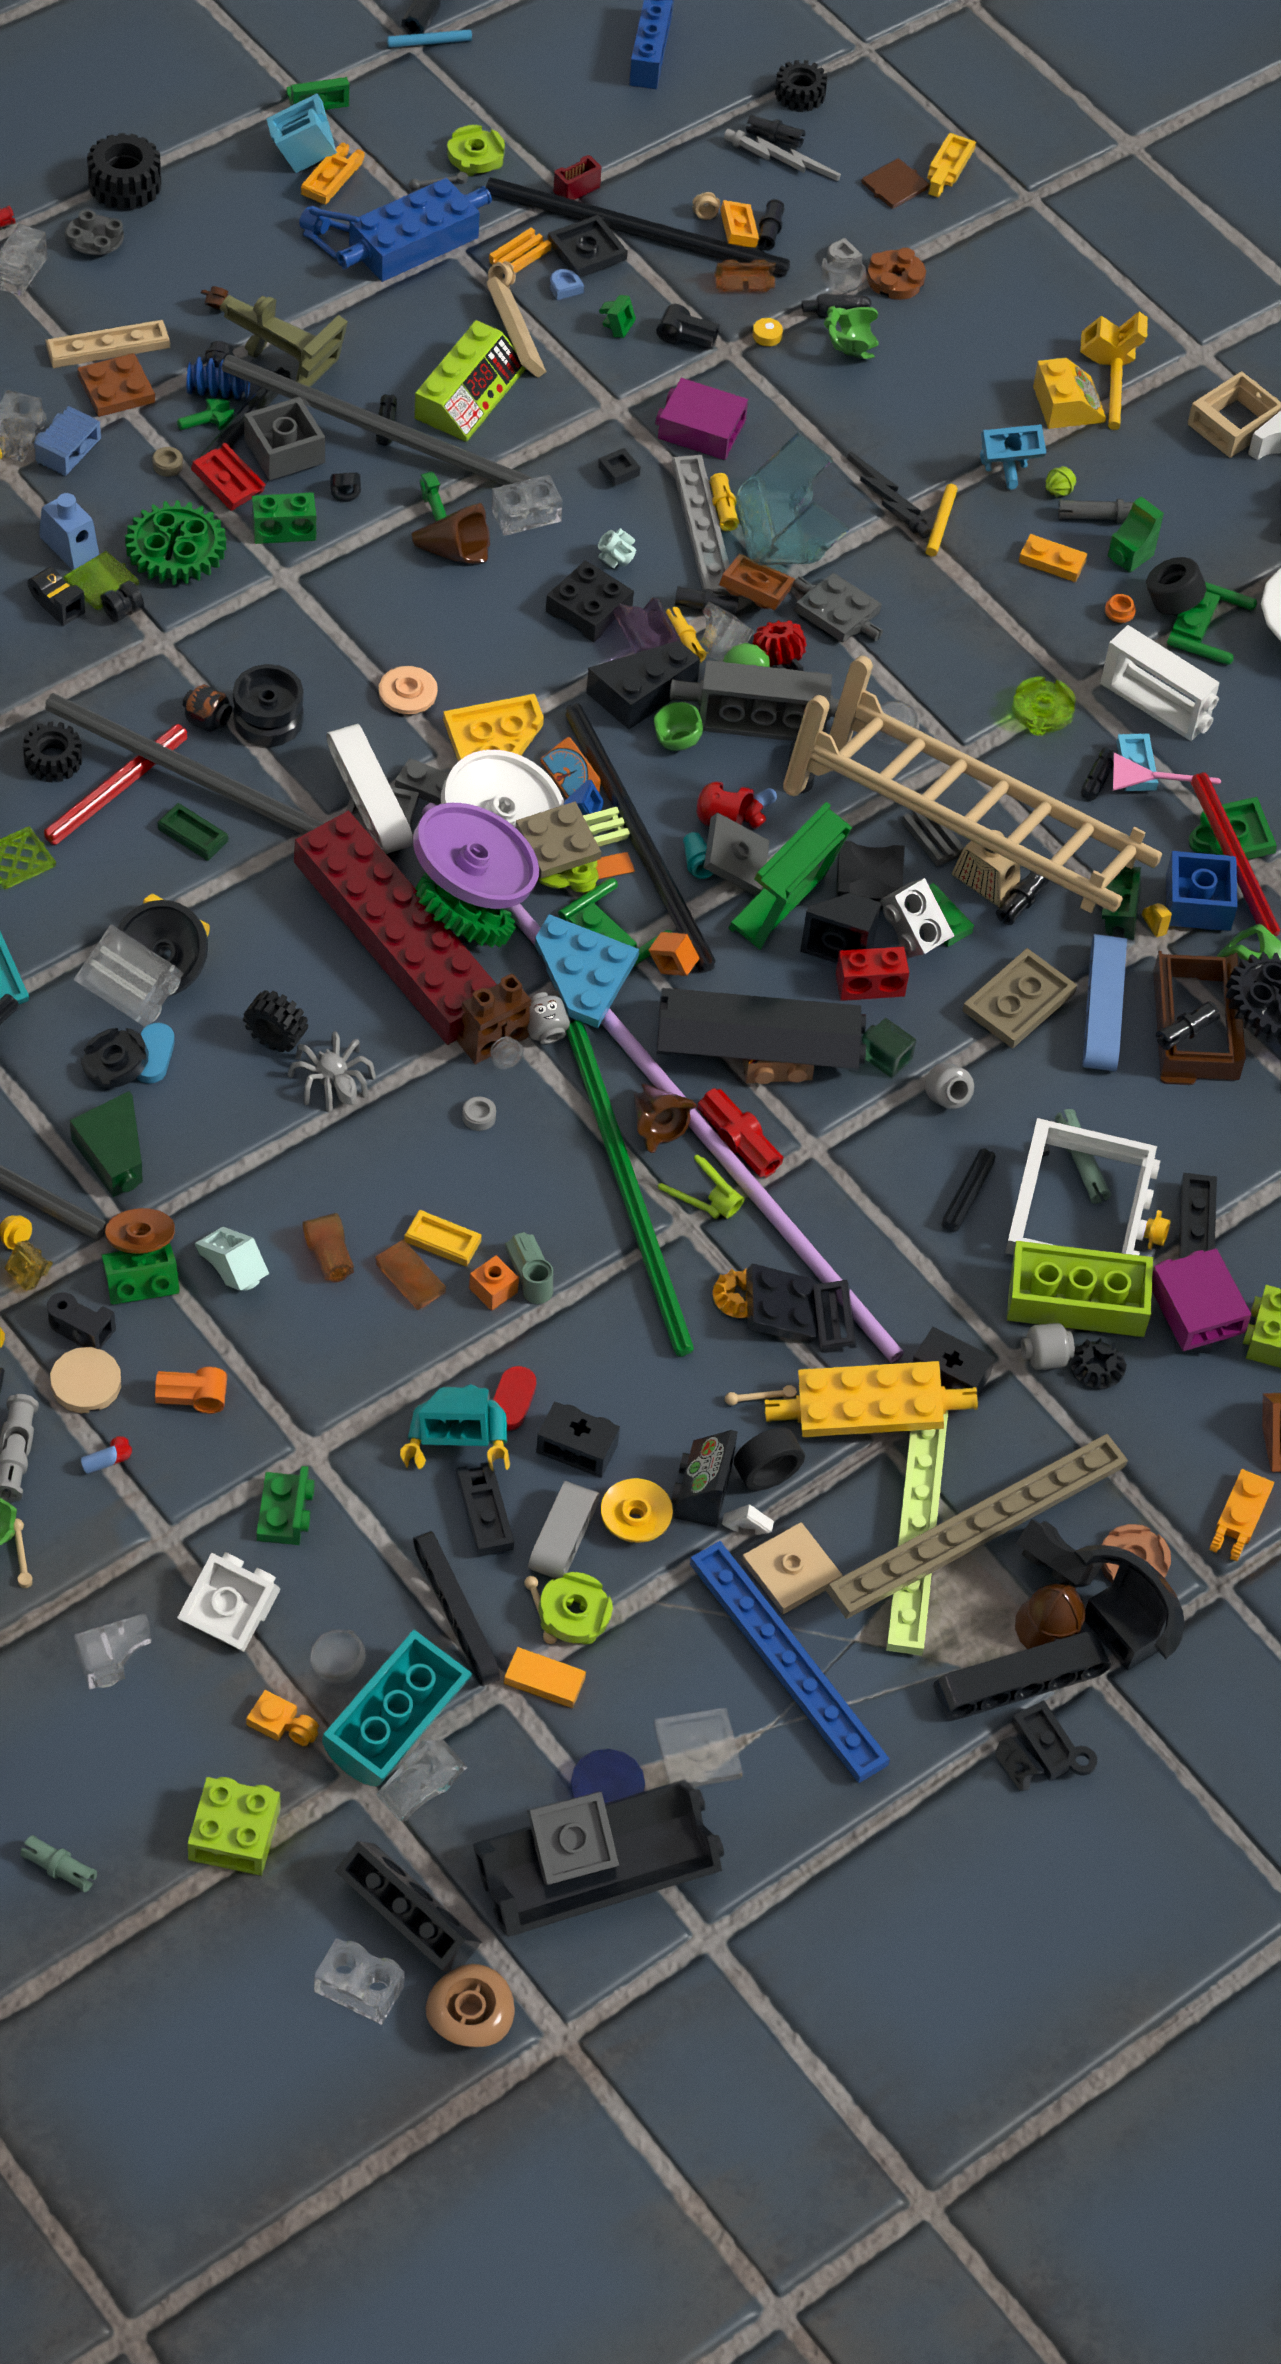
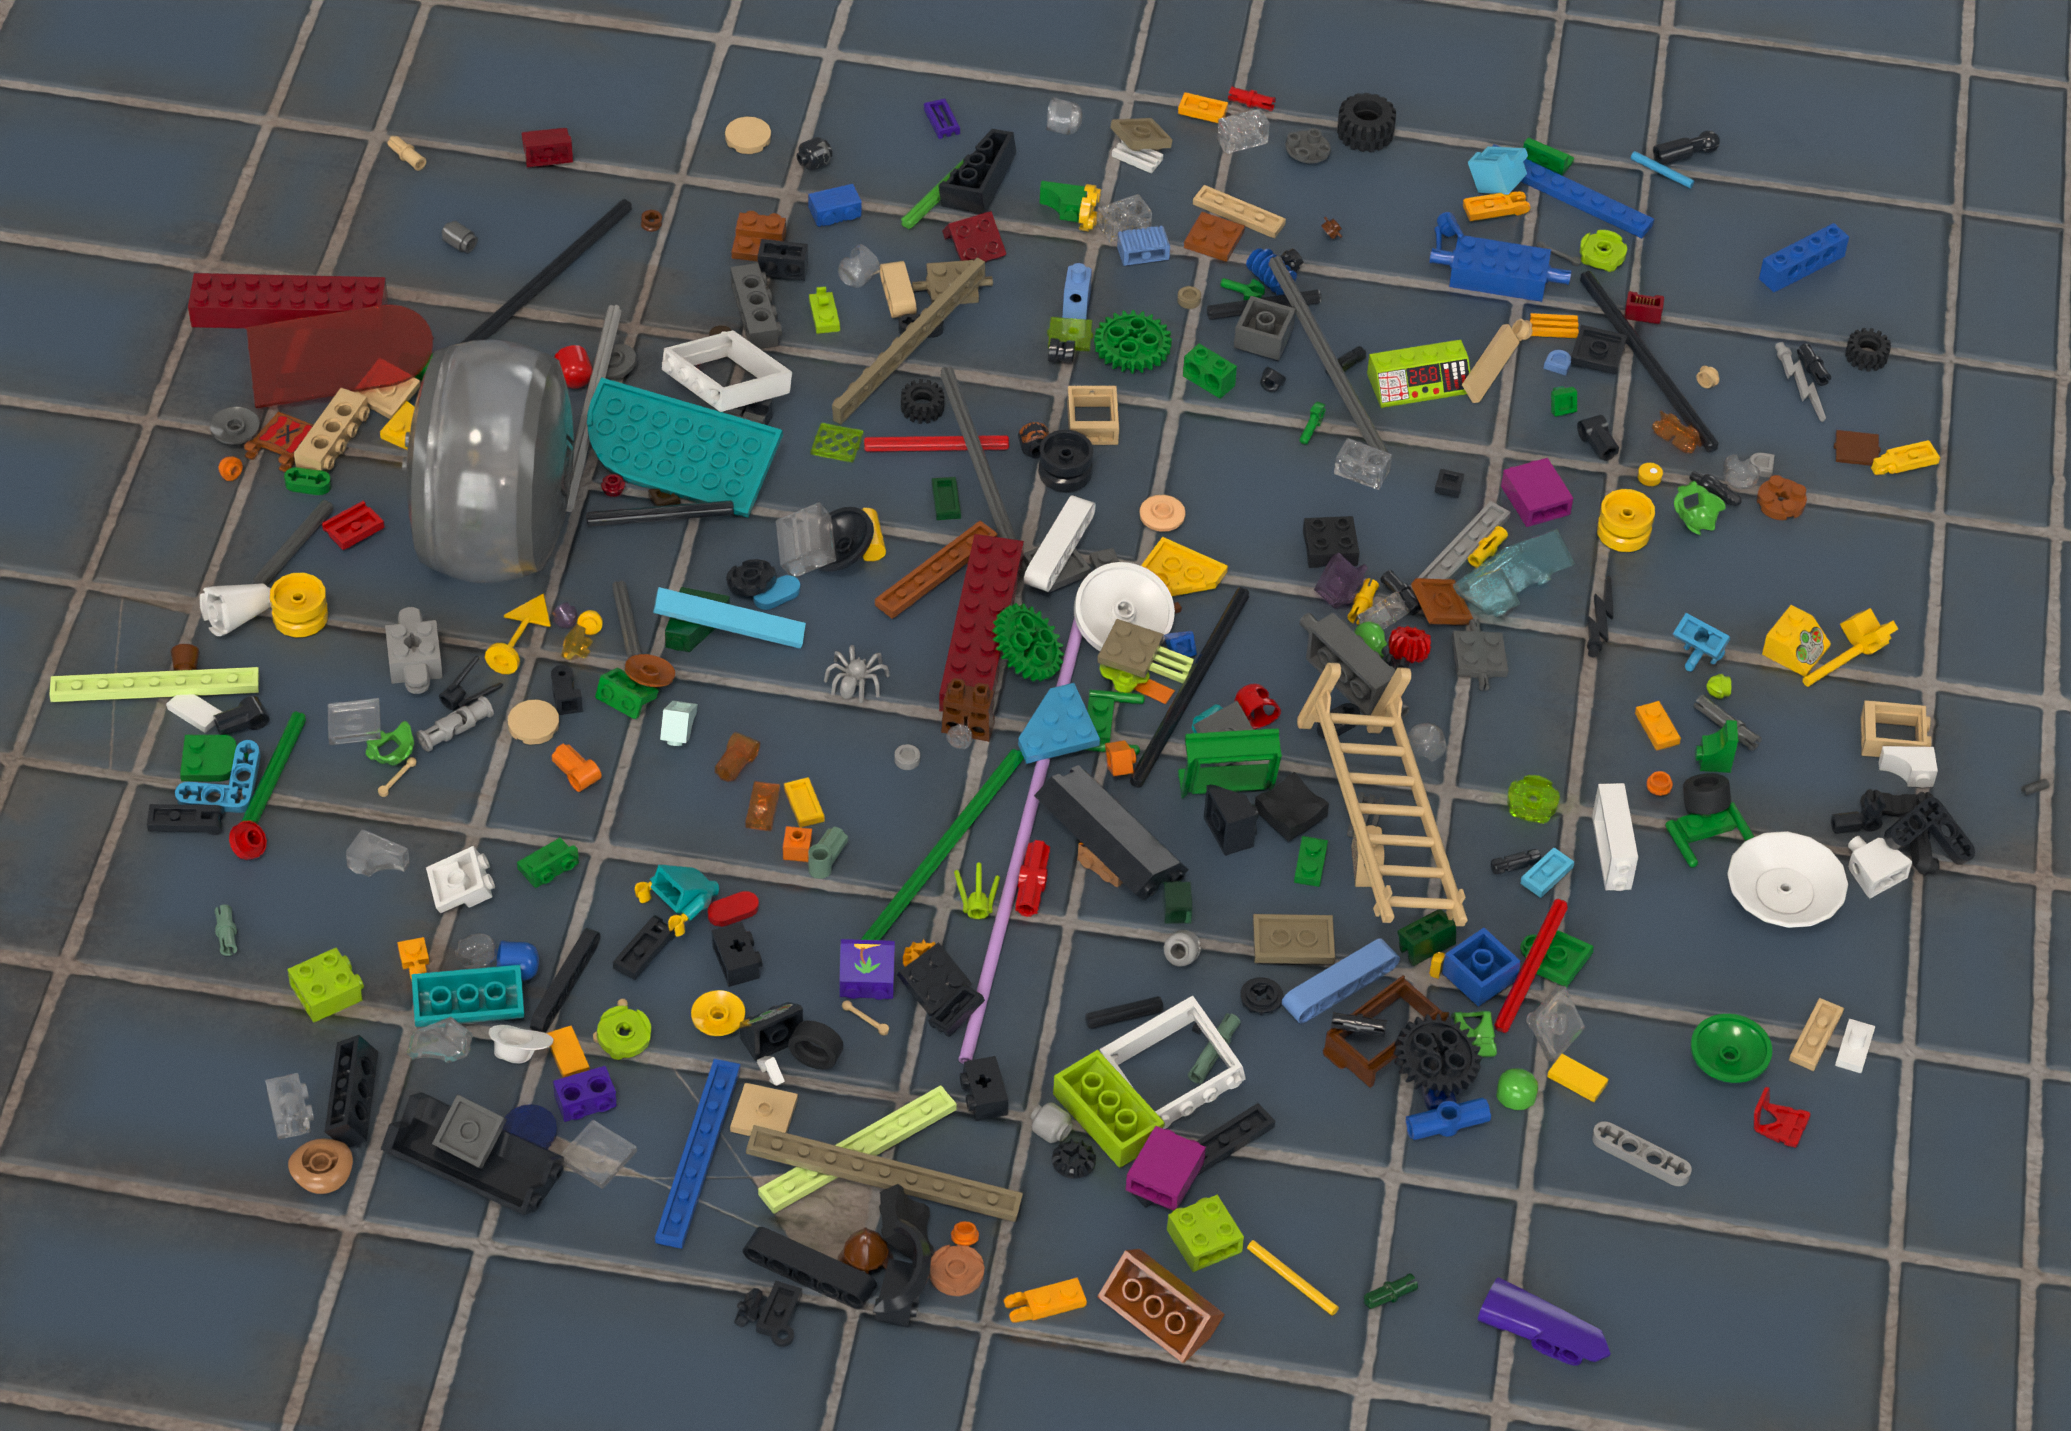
camera: 50 degrees right, 5 degrees down
(56, 594) = (1030, 321): black leg -> none
(117, 1452) = (502, 768): medium blue arm -> none
(156, 1113) = (729, 617): none -> medium azure tile
(228, 476) = (1208, 326): red plate -> none
(264, 639) = (1096, 431): none -> tan window
(275, 1021) = (852, 622): black tyre -> none
(277, 908) = (930, 572): none -> dark orange plate
(313, 352) = (1338, 292): olive piece -> none
(394, 1622) = (520, 954): none -> blue helmet
(399, 112) = (1586, 199): none -> blue plate
(458, 536) = (1301, 452): reddish brown hat -> none
(476, 855) = (1061, 615): medium lavender dish -> none
(498, 1709) = (517, 1044): none -> white piece
(547, 1018) = (1003, 735): light grey head -> none
(563, 1530) = (668, 990): light grey beam -> none
(569, 767) = (1198, 620): slope -> none
(615, 1700) = (591, 1091): none -> dark purple brick
(616, 548) = (1383, 524): light aqua gear -> none
(641, 682) = (1292, 599): black wedge -> none
(661, 1116) = (993, 832): reddish brown hat -> none
(678, 726) = (1287, 644): bright green hair -> none
(720, 1347) = (867, 969): none -> dark purple slope
(739, 224) = (1712, 400): light orange plate -> none
(759, 802) = (1281, 720): red arm -> none
(770, 224) = (1735, 415): black pin -> none
(811, 387) = (1625, 520): none -> yellow wheel
(871, 1399) = (912, 1064): yellow plate -> none
(872, 973) = (1220, 857): red brick -> none
(923, 914) = (1288, 847): light grey brick -> none
(941, 520) = (1615, 654): yellow bar -> none
(1021, 897) = (1364, 889): black pin -> none
(1065, 1065) = (1257, 987): none -> black gear
(1105, 1517) = (965, 1233): none -> orange plate
(1130, 773) = (1530, 872): bright pink piece -> none
(1157, 1230) = (1201, 1119): yellow plate -> none

